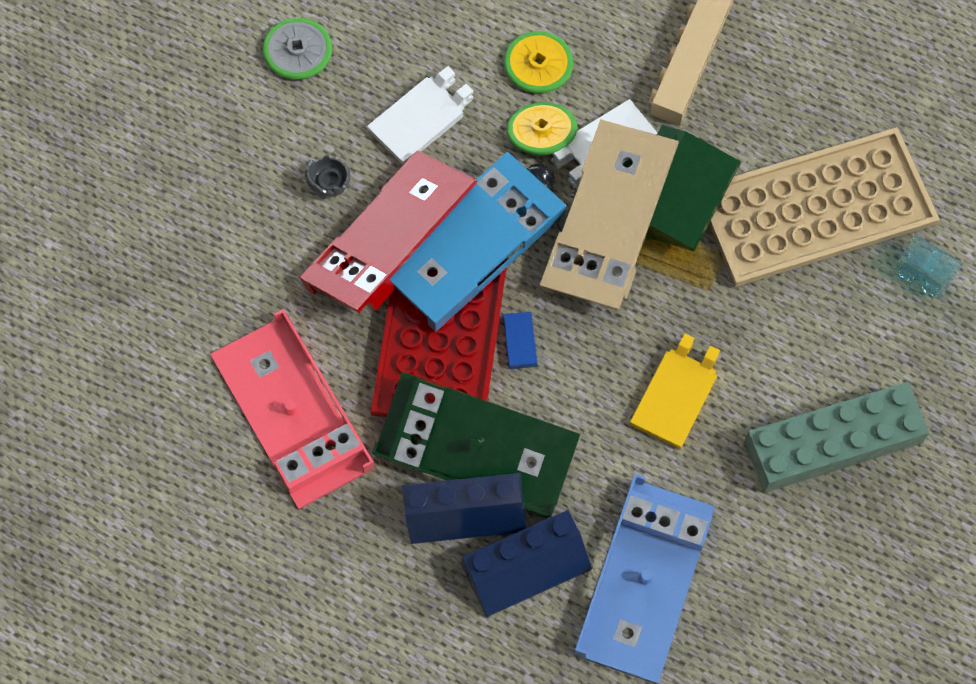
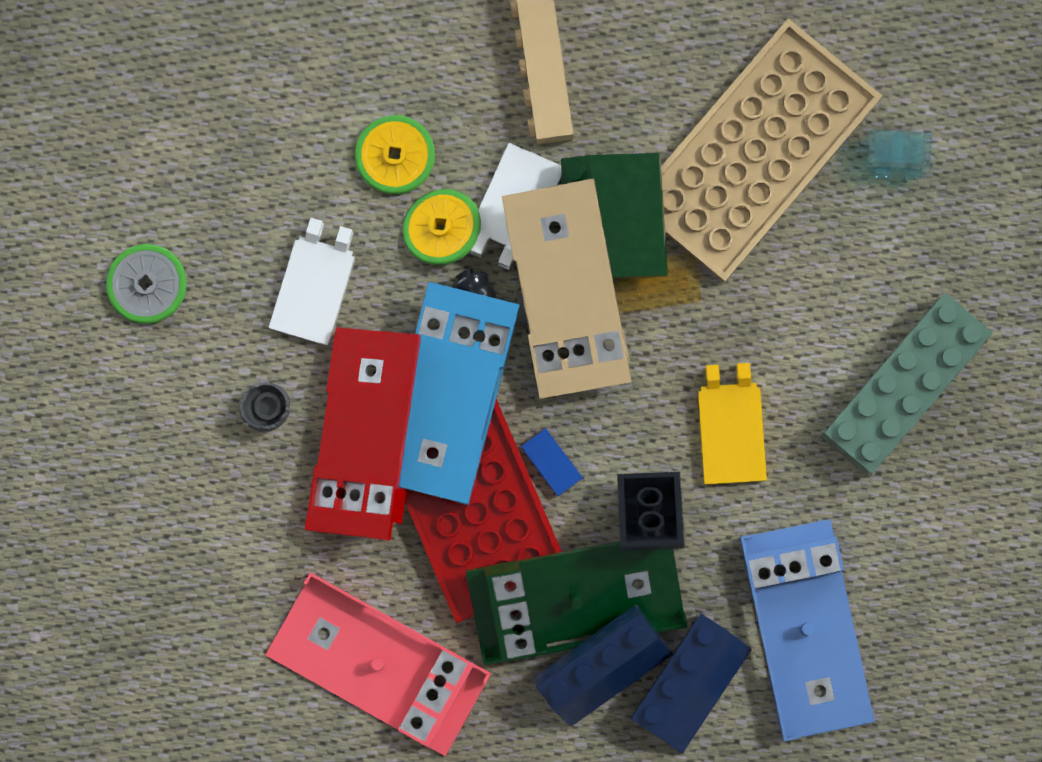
camera: 25 degrees left, 15 degrees up
(575, 406) = (650, 511): none -> black slope

